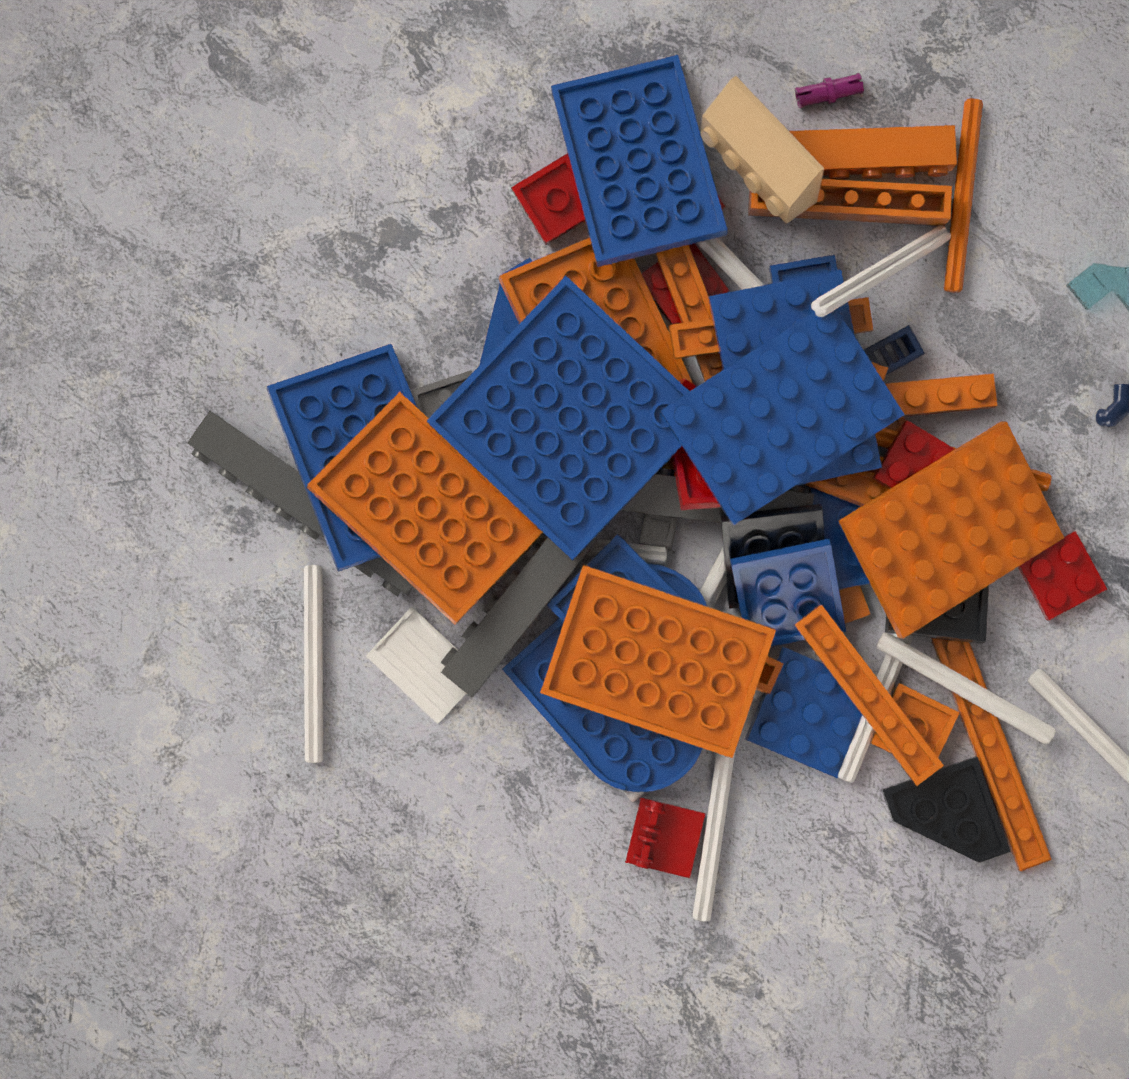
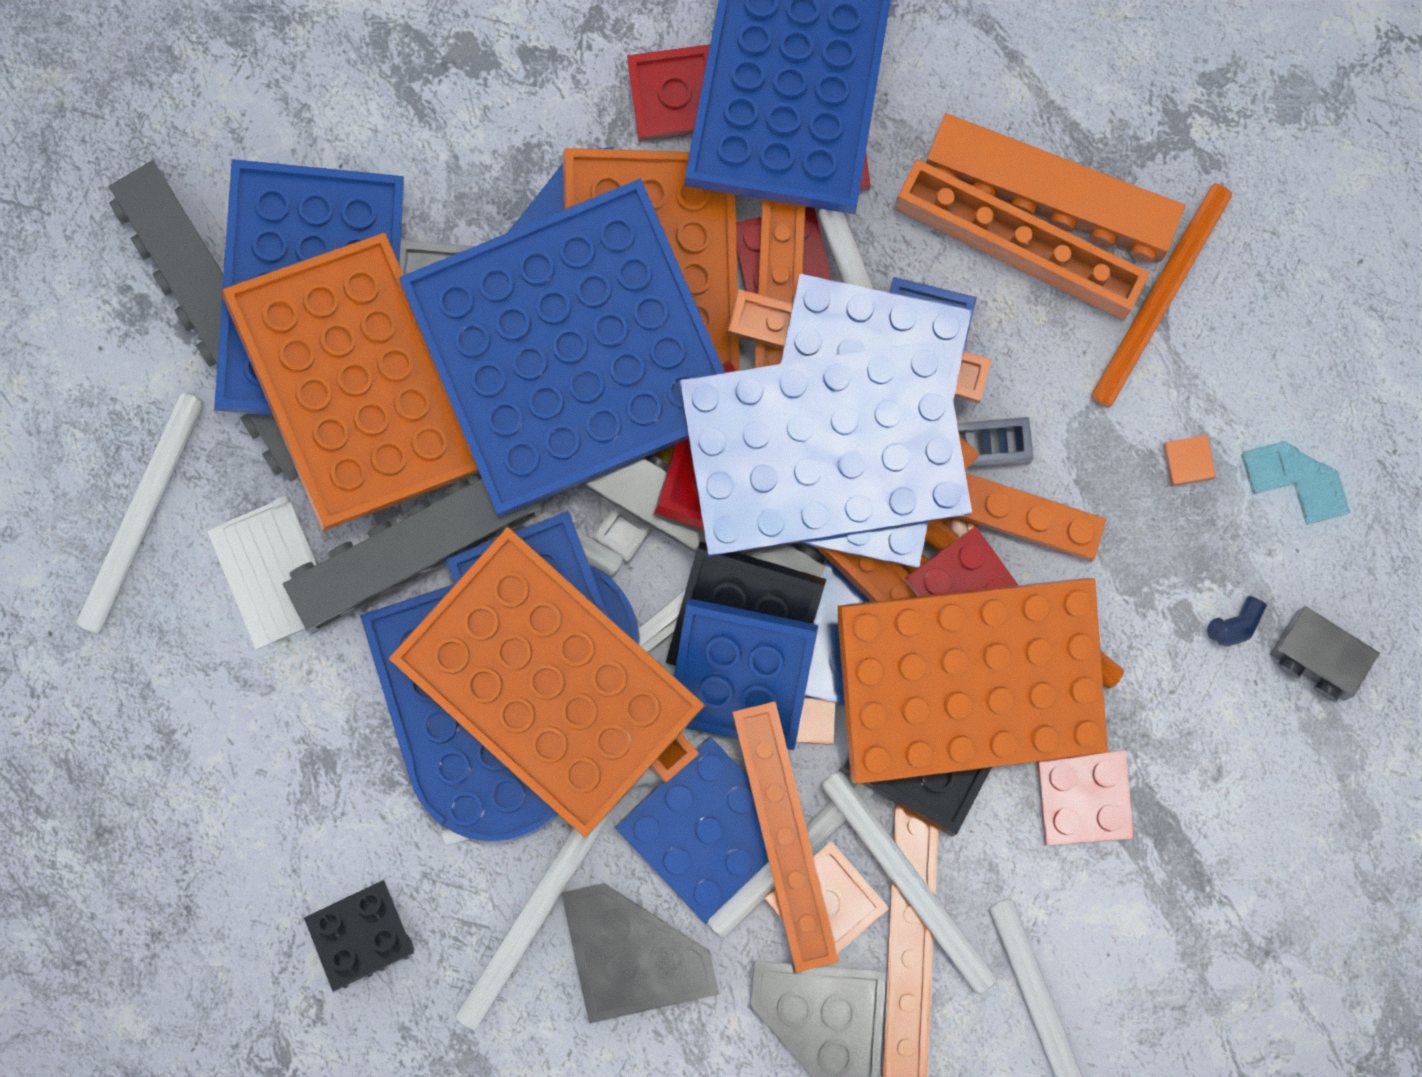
camera: 20 degrees right, 5 degrees down
(601, 891) = (359, 935): none -> black hinge
(665, 837) = (466, 905): red hinge -> none
(762, 151) = (937, 132): tan slope -> none
(796, 823) = (632, 957): none -> plate
(829, 90) = (1055, 104): magenta pin -> none
(880, 271) = (1019, 334): white axle -> none
(1032, 305) = (1189, 460): none -> orange tile

